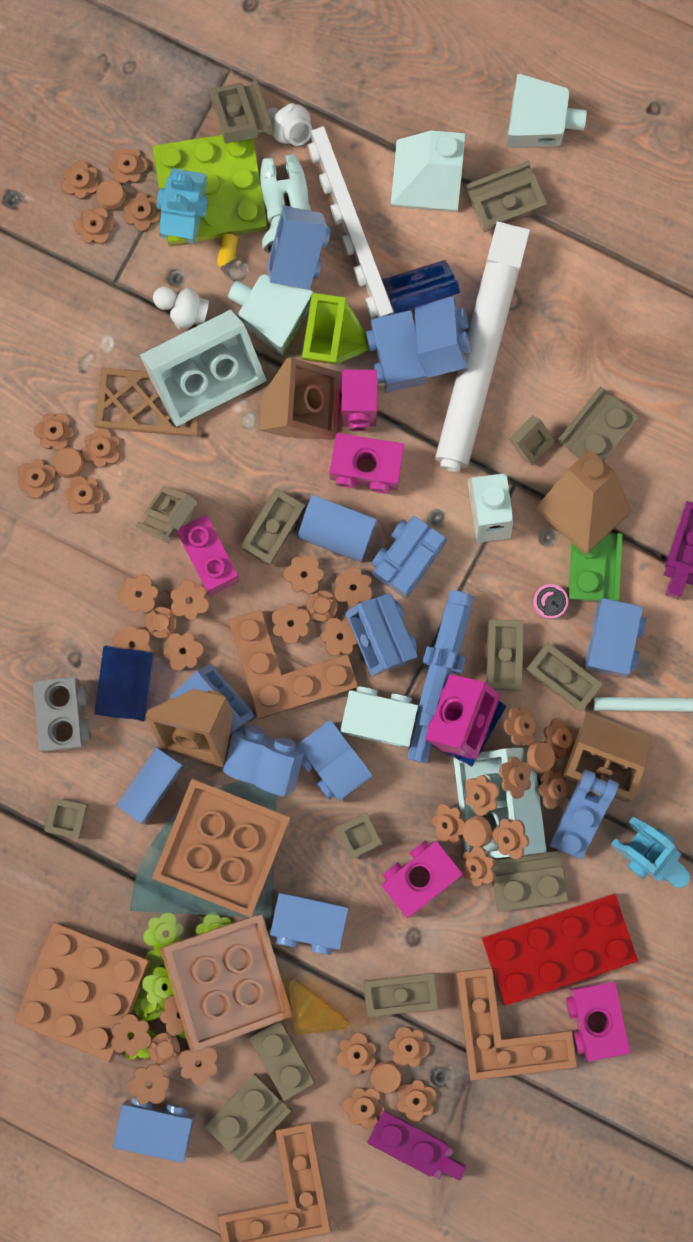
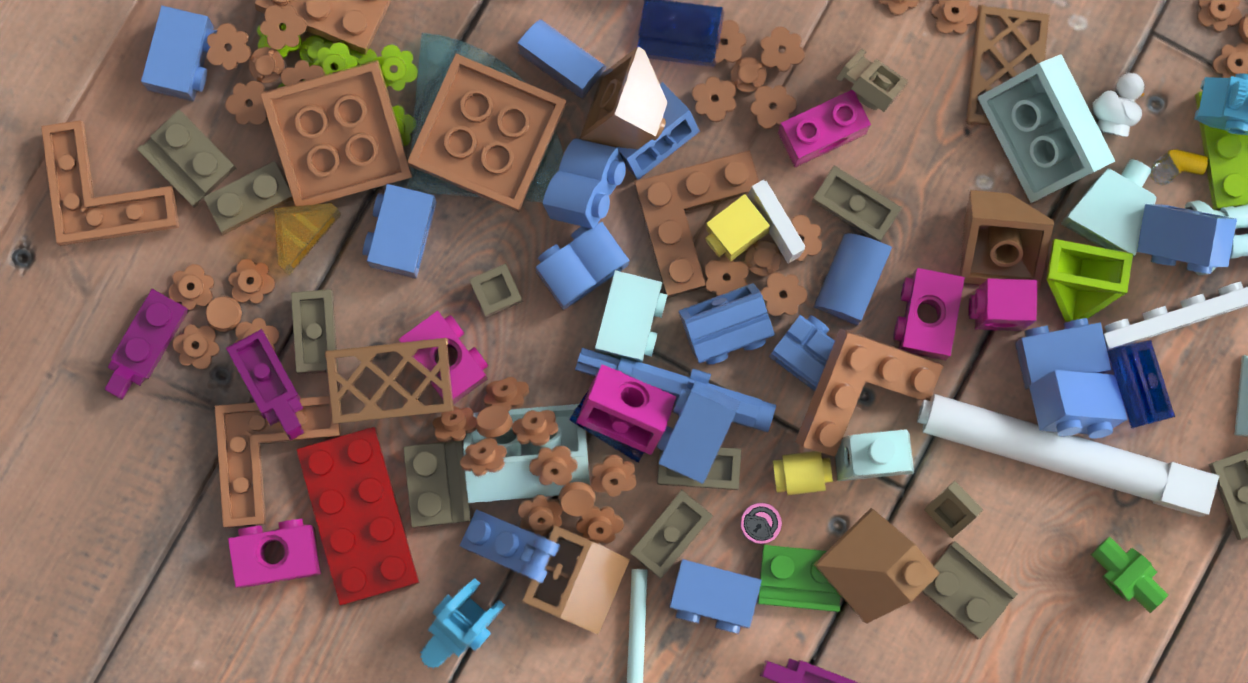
camera: 85 degrees right, 0 degrees up
(292, 593) = (780, 225): none -> white tile
(300, 628) = (736, 228): none -> light yellow brick
(417, 526) = (842, 380): none -> nougat plate
(449, 1034) = (267, 382): none -> magenta hinge
(471, 938) = (366, 355): none -> medium nougat window
(480, 653) = (698, 431): none -> medium blue brick
(506, 567) = (802, 473): none -> light yellow brick
(579, 295) = (1129, 574): none -> bright green axle

